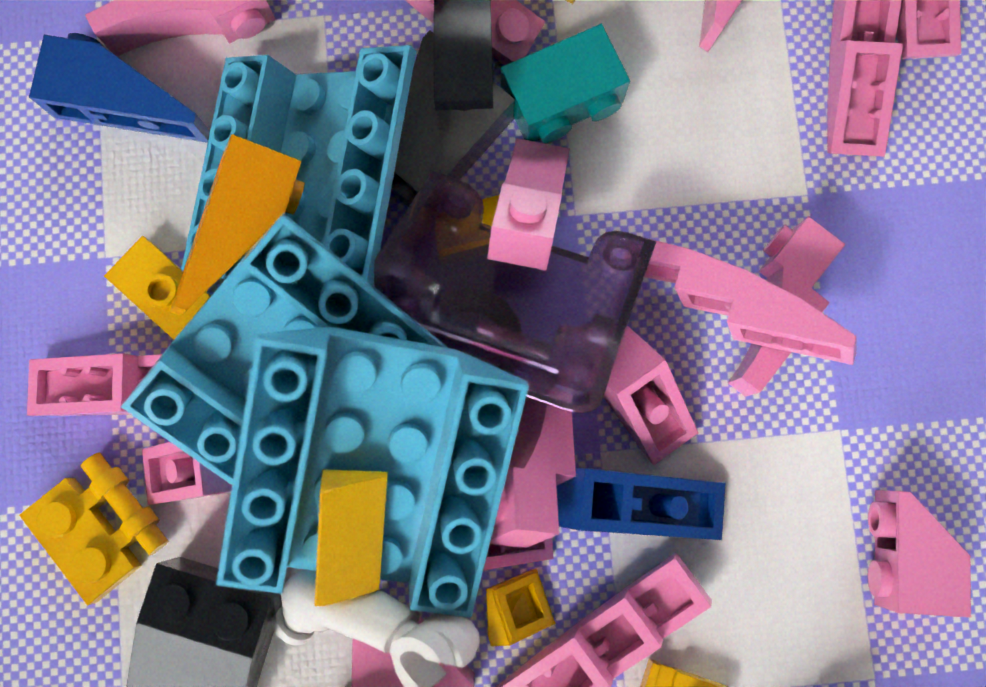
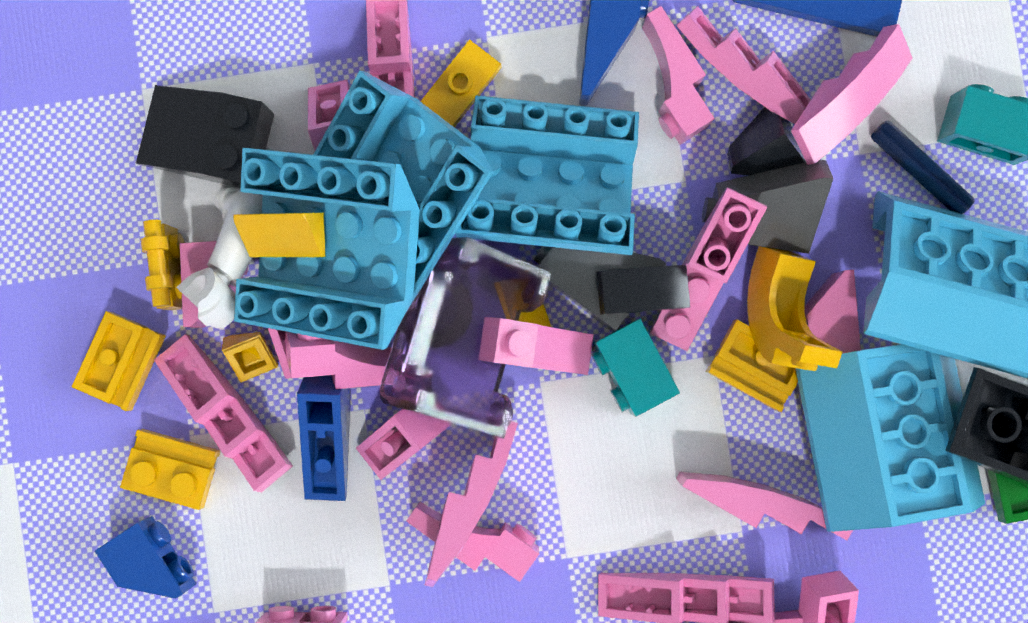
camera: 90 degrees right, 5 degrees up
(80, 536) = (282, 45): yellow plate -> none
(243, 203) = (510, 136): light orange slope -> none

